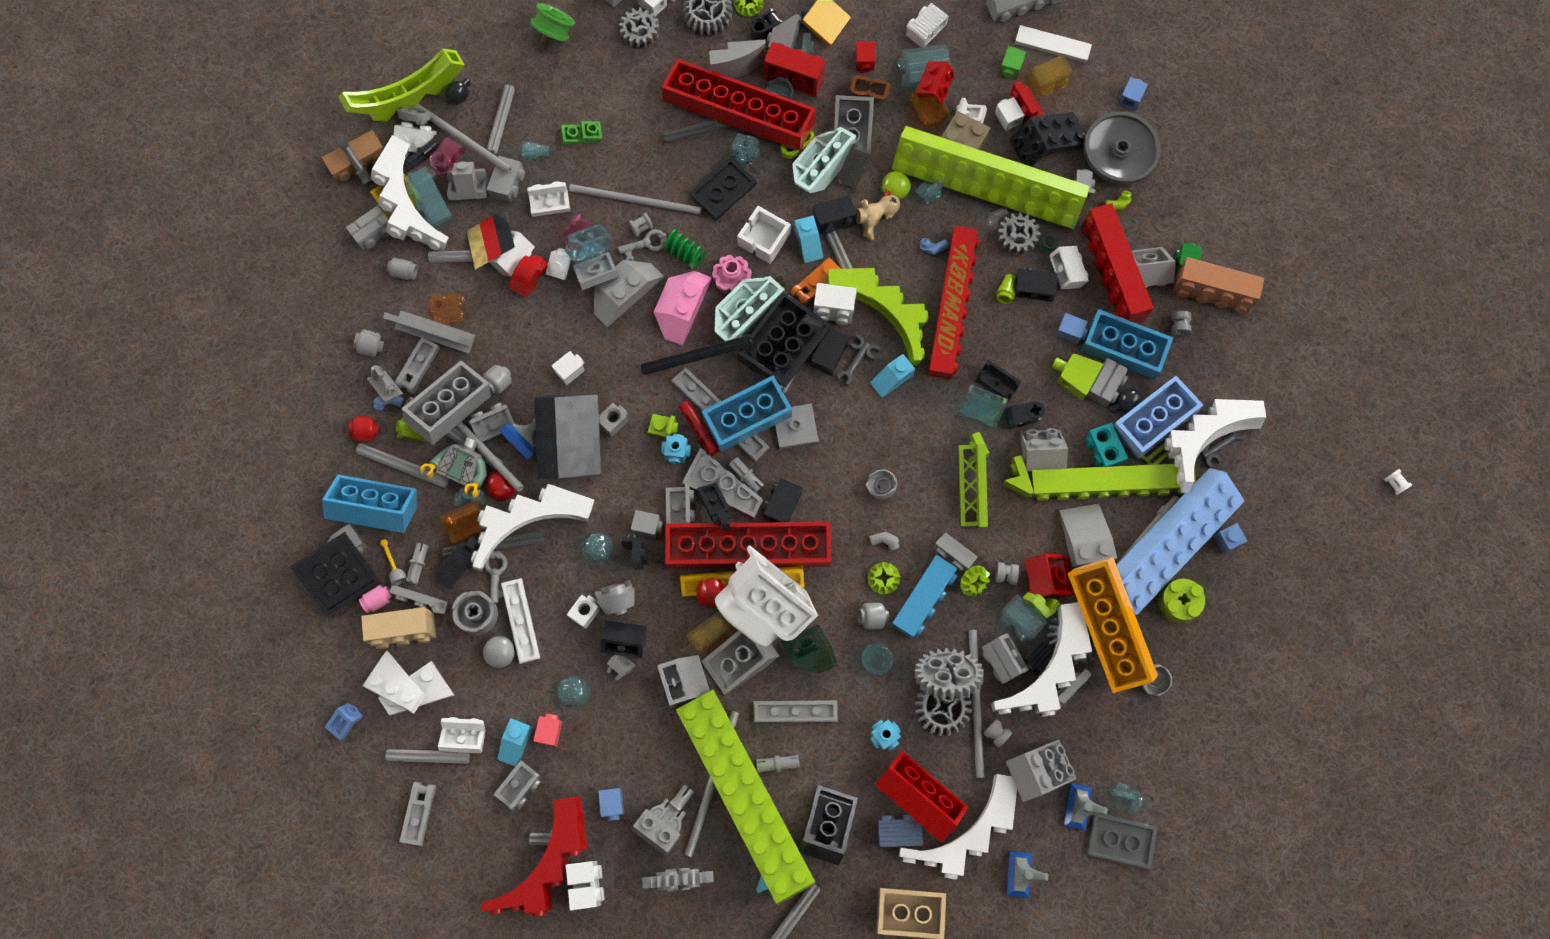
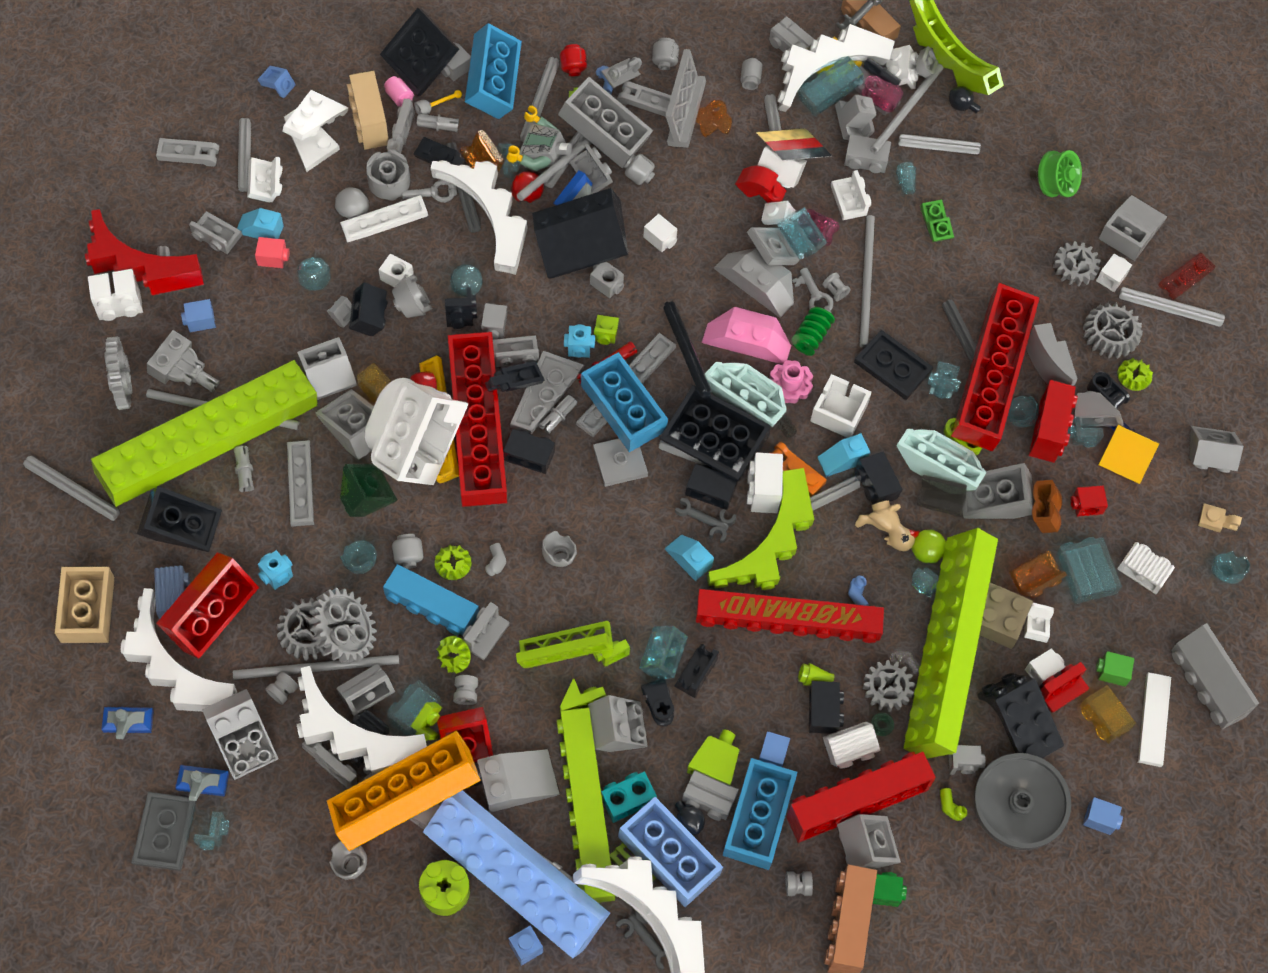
camera: 80 degrees right, 10 degrees down
(935, 81) = (1065, 573): red bracket -> none

